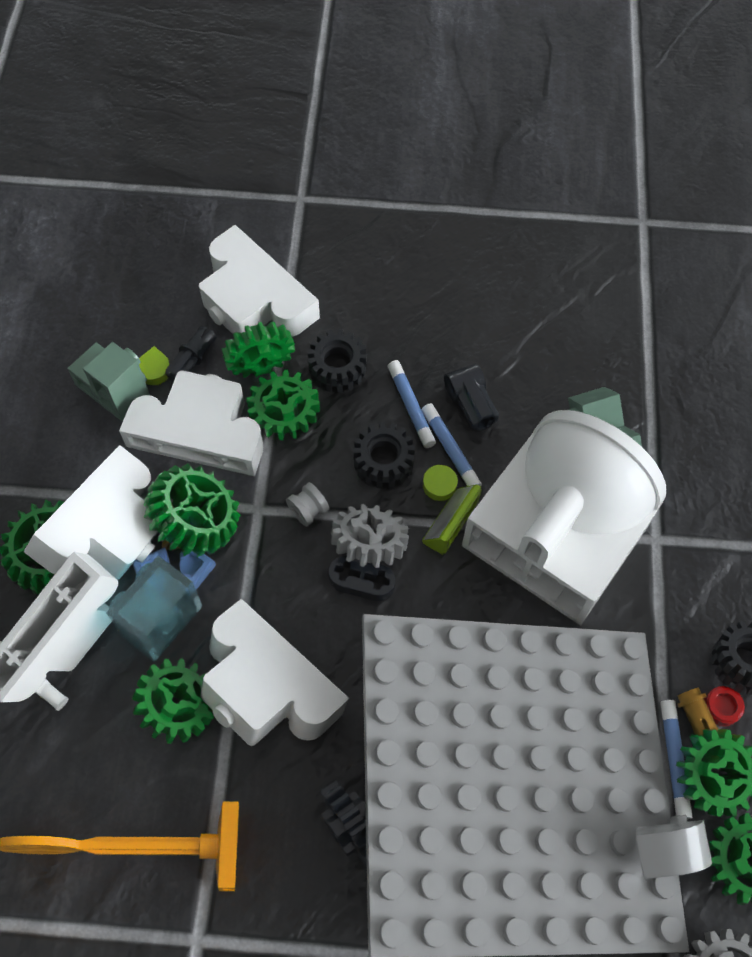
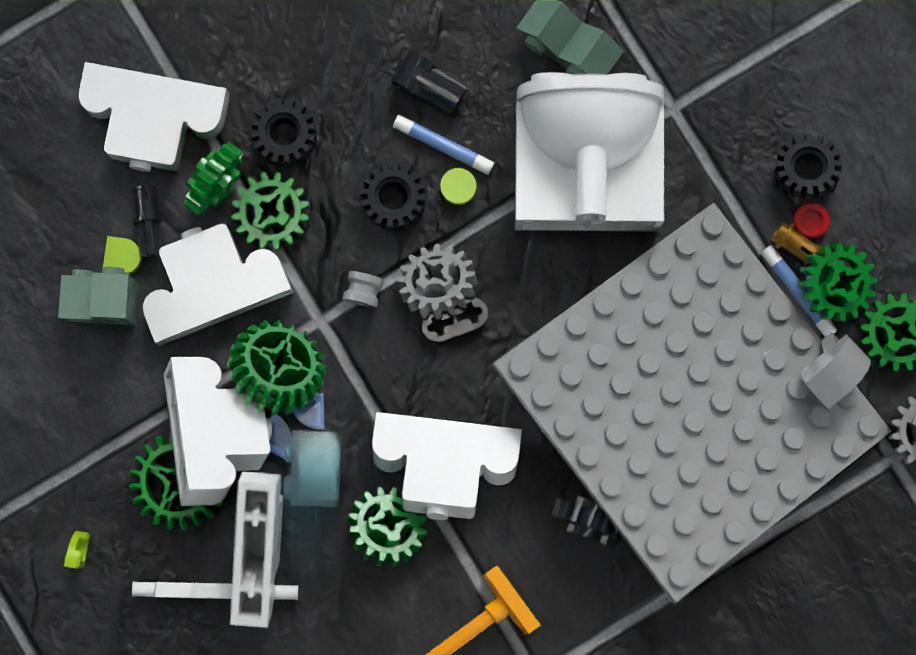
camera: 30 degrees left, 20 degrees up
(411, 404) = (379, 126): medium blue bar -> none
(452, 518) = (491, 213): lime slope -> none

